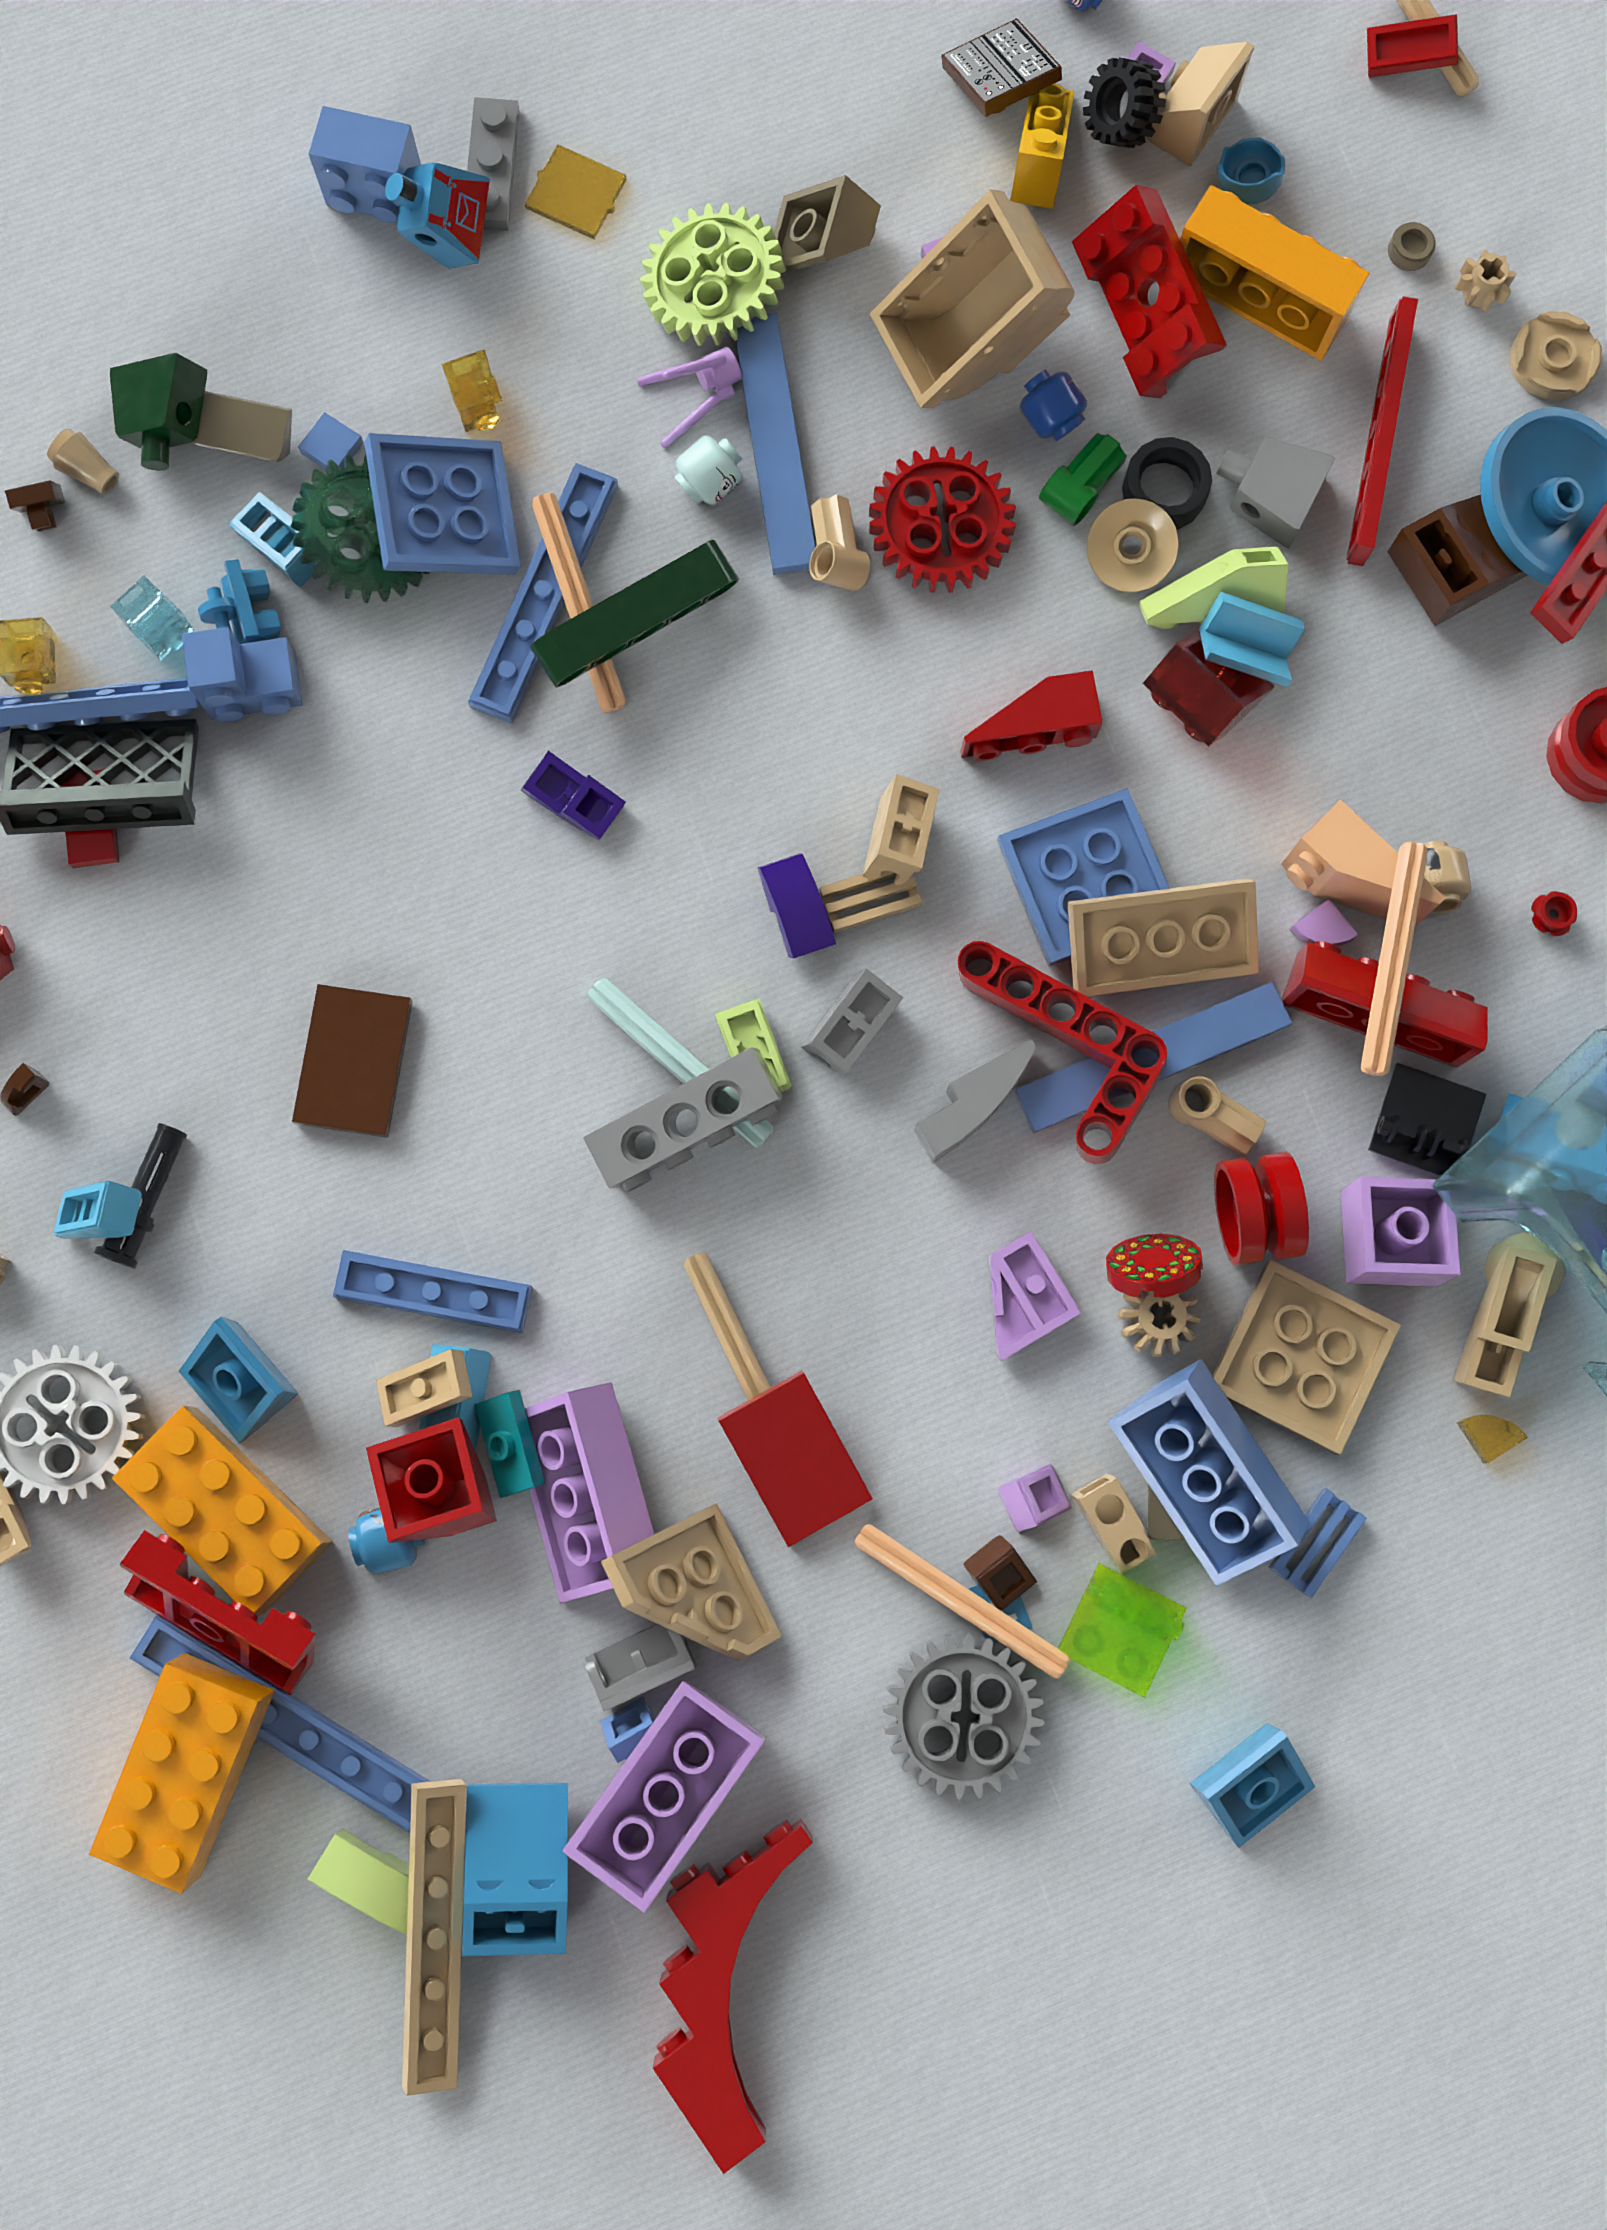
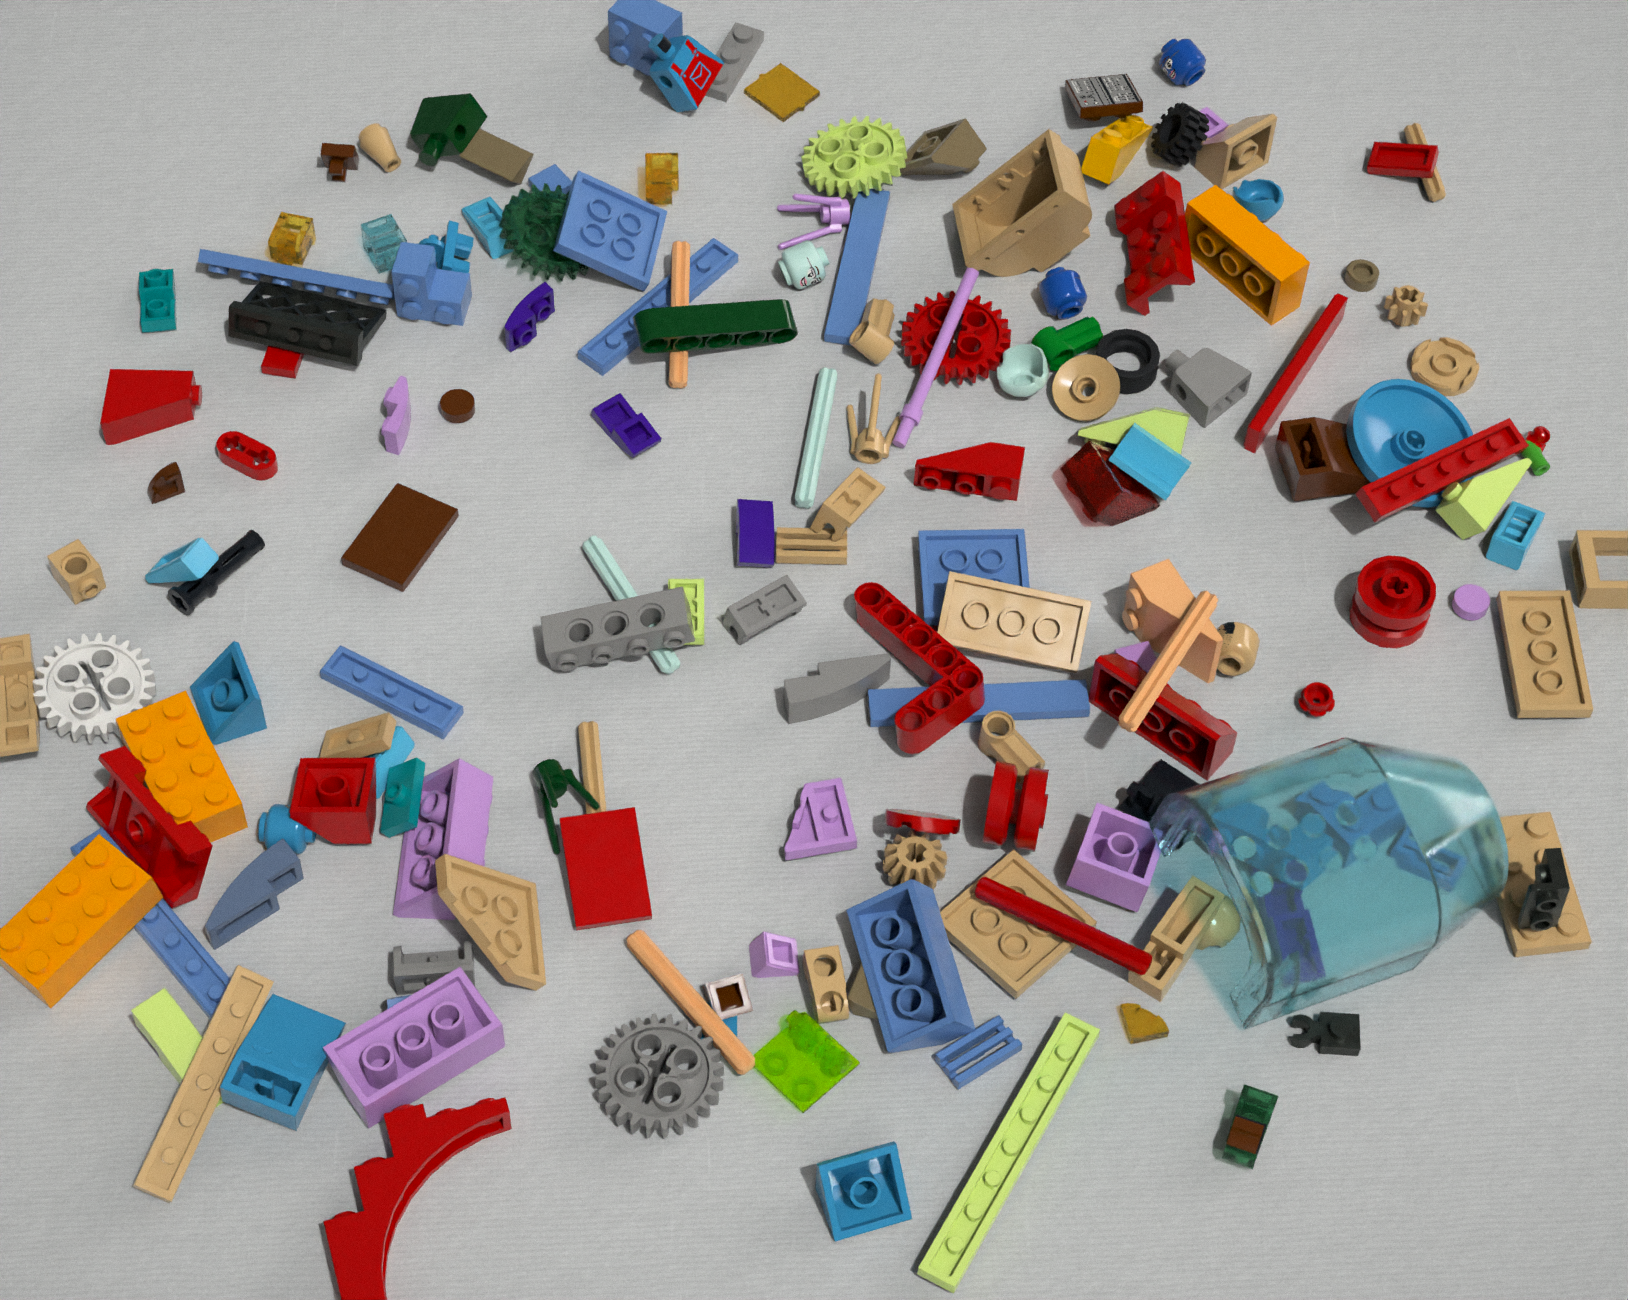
camera: 20 degrees right, 25 degrees down
(105, 1016) = (244, 459): none -> red beam
(275, 872) = (397, 423): none -> lavender slope
(346, 836) = (457, 406): none -> reddish brown tile
(382, 686) = (522, 322): none -> dark purple slope
(383, 1644) = (254, 893): none -> sand blue slope
(684, 1360) = (552, 784): none -> dark green plant
(818, 731) = (816, 438): none -> light aqua axle
(891, 721) = (870, 444): none -> tan plant
(927, 657) = (912, 412): none -> lavender bar
(1045, 545) = (1023, 370): none -> light aqua hair
(1371, 1354) = (1063, 925): none -> red axle
(1400, 1666) = (1008, 1153): none -> yellowish green plate

